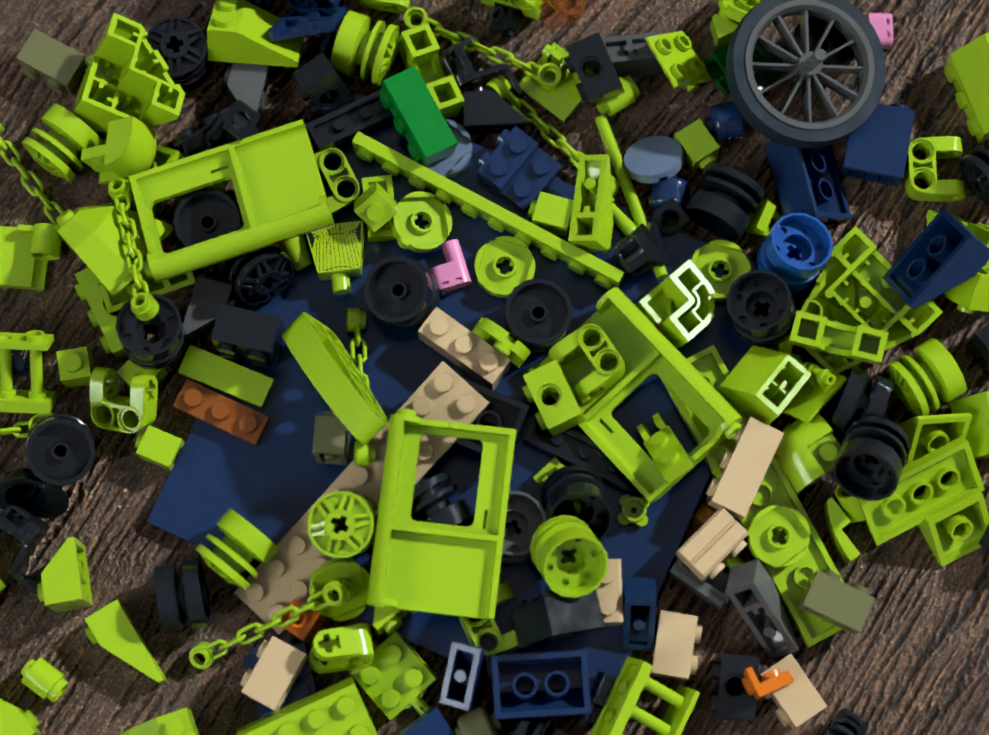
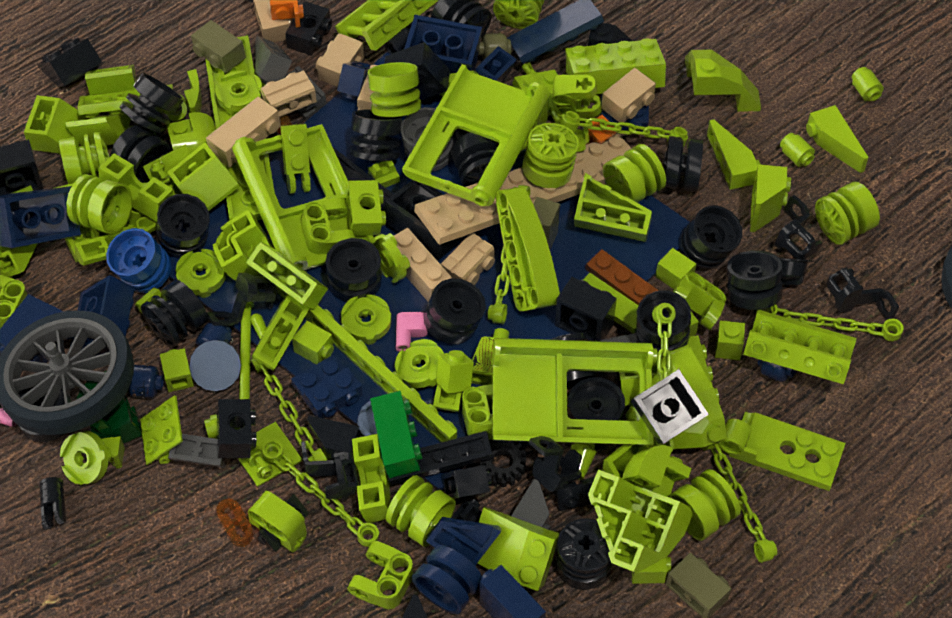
camera: 165 degrees left, 20 degrees down
(110, 490) = (711, 237): none -> black wheel
(114, 198) = (669, 407): none -> brick
(253, 487) = (610, 212): none -> lime wedge
(411, 368) = (470, 259): none -> tan brick
(605, 259) = (287, 275): none -> lime brick
(640, 504) = (337, 138): lime plate -> none
(868, 293) = (99, 204): none -> lime wheel

